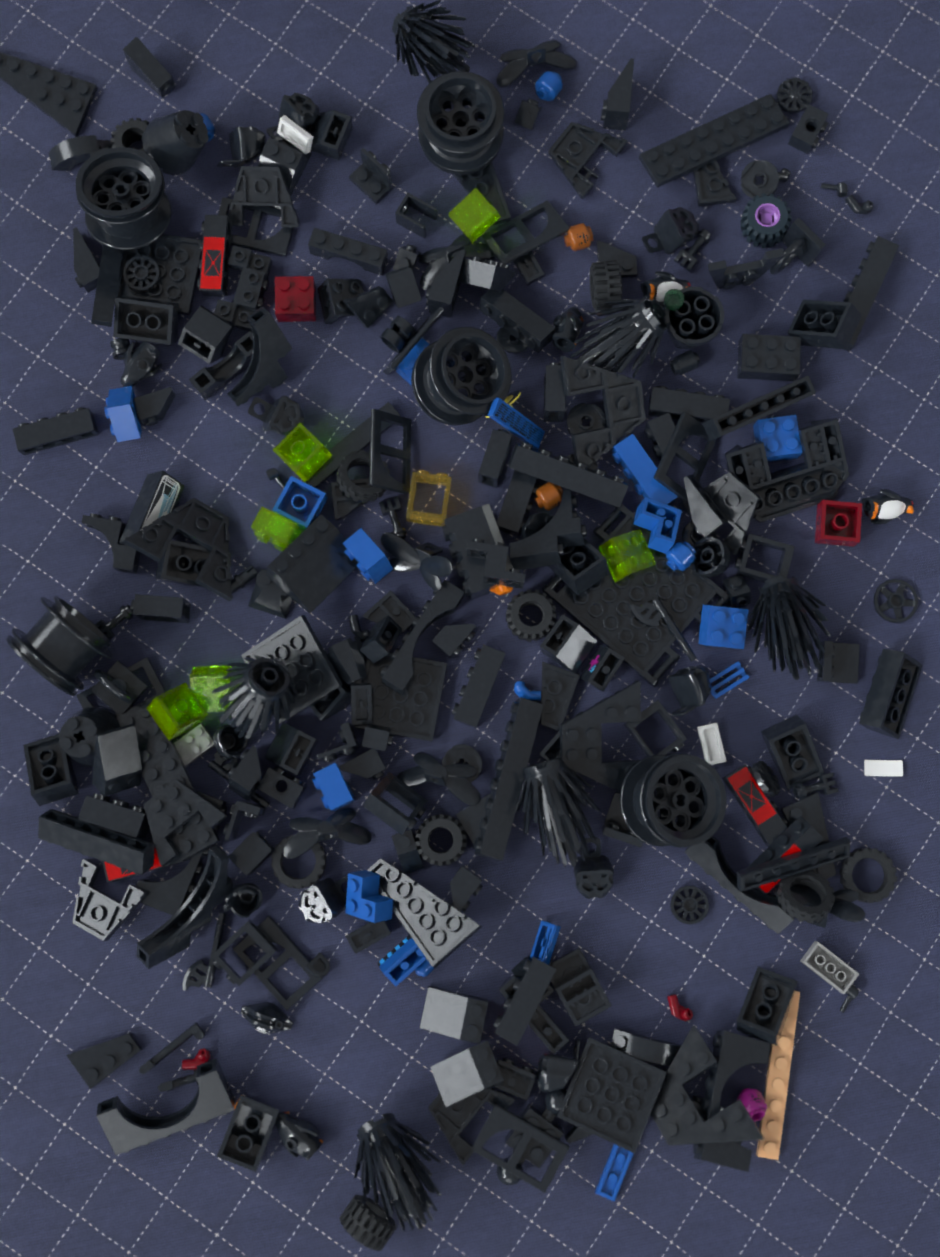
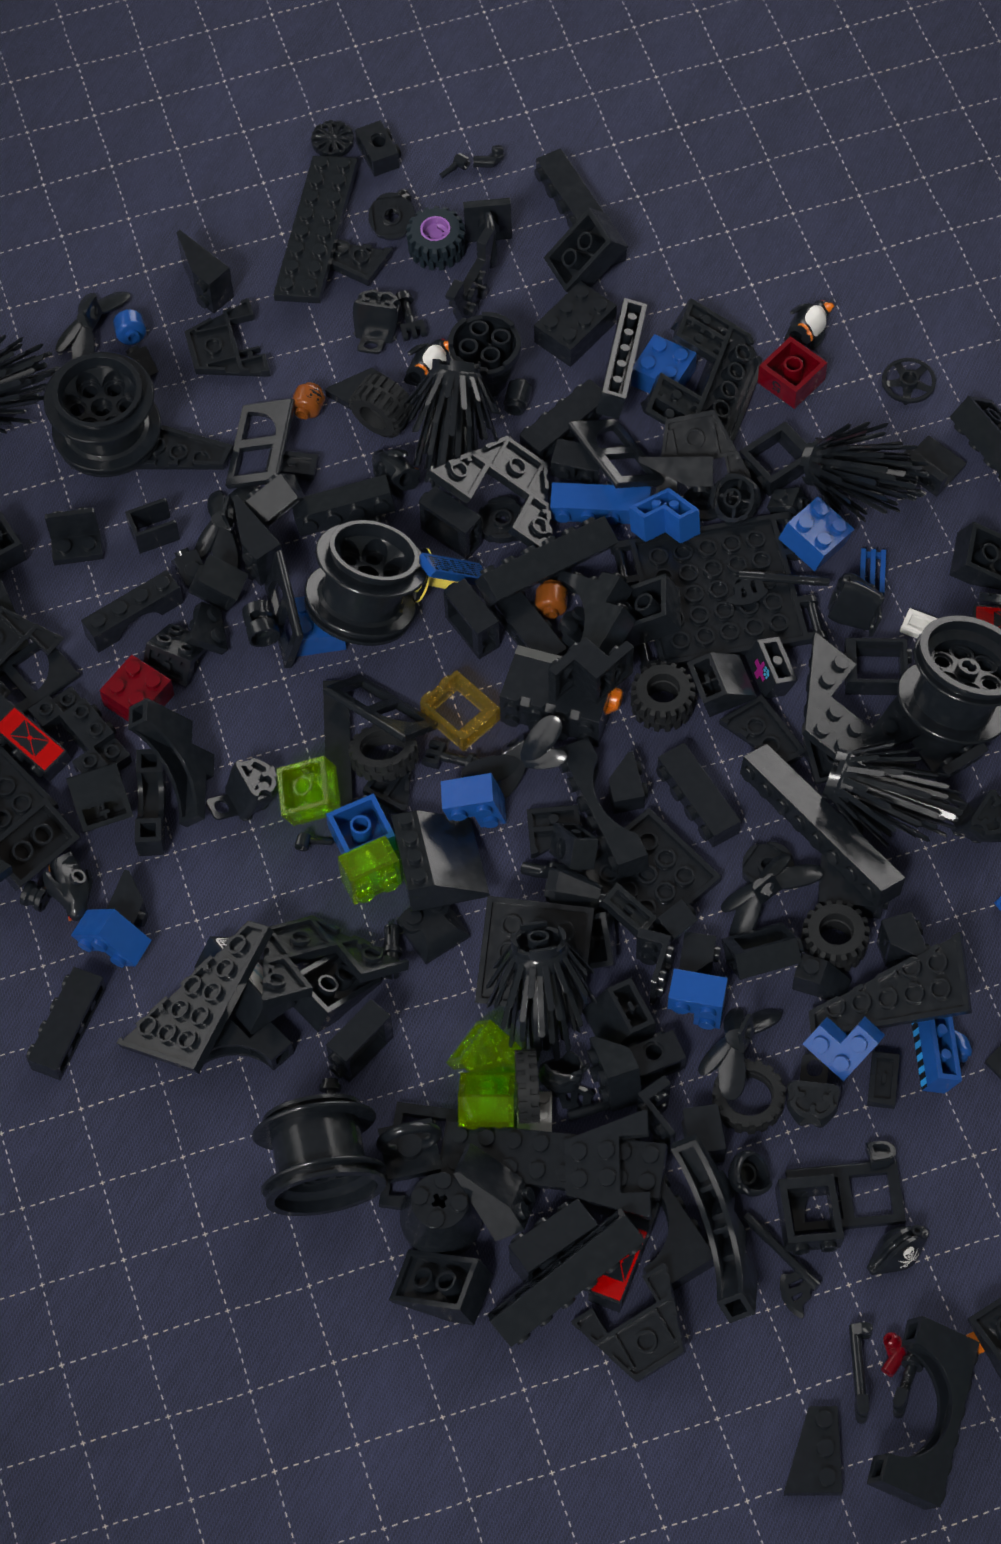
camera: 50 degrees left, 20 degrees down
(99, 501) = (189, 1022): none -> black wing
(193, 731) = (527, 1086): none -> black tyre
(474, 215) = (201, 473): clear neon green bracket -> none
(522, 691) = (734, 759): blue arm -> none
(627, 554) = (677, 563): clear neon green bracket -> none
(673, 299) = (454, 346): clear green tile -> none
(680, 556) = (714, 521): blue head -> none

